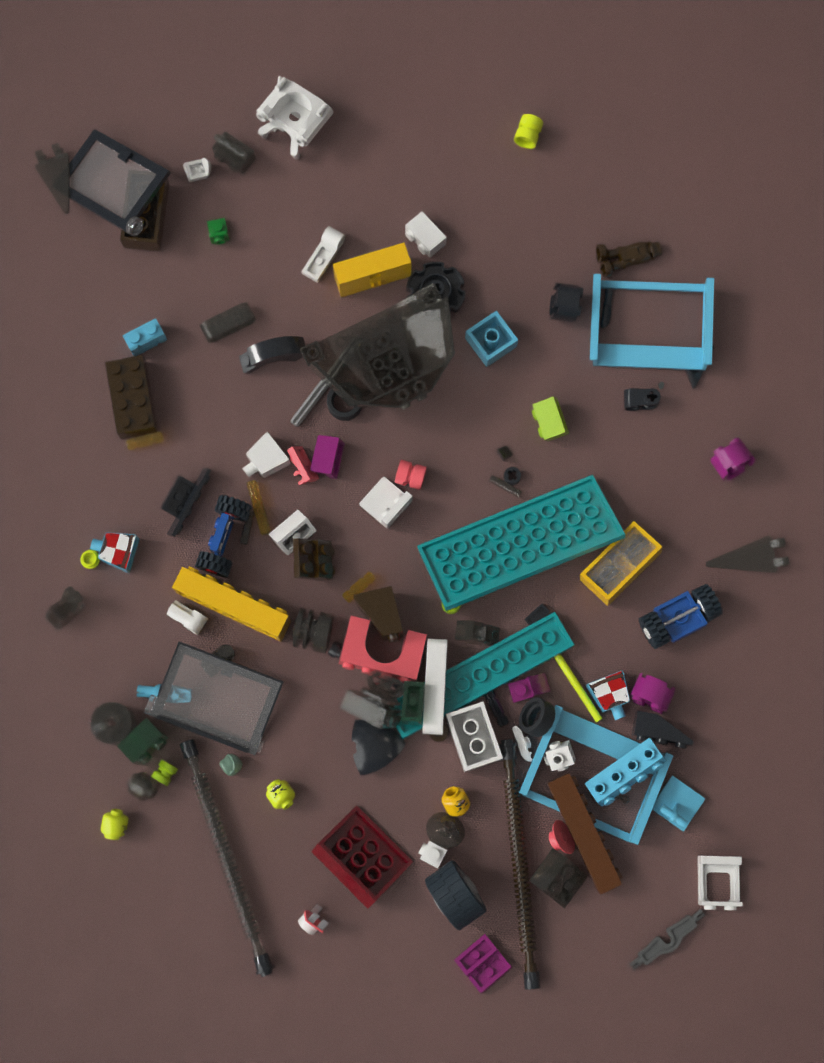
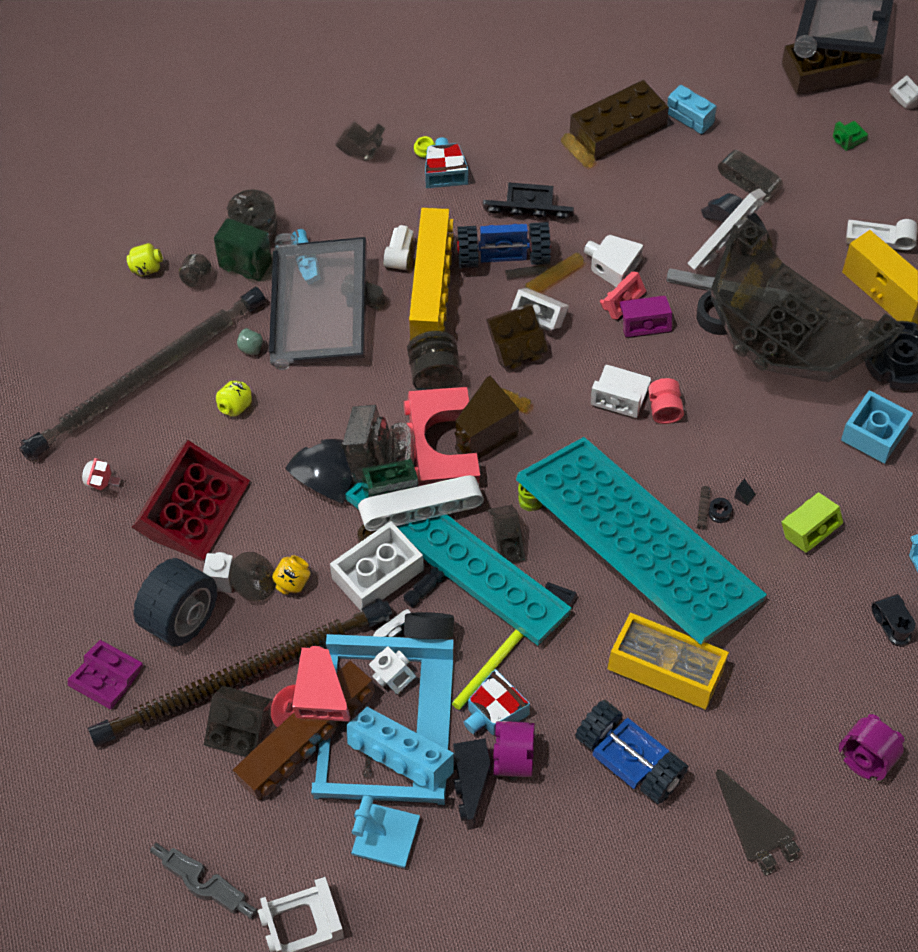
camera: 70 degrees right, 20 degrees down
(164, 772) = (218, 285): lime wheel -> none
(290, 365) = (719, 239): none -> white plate
(529, 687) = (467, 614): magenta slope -> none
(566, 812) = (318, 688): none -> coral slope

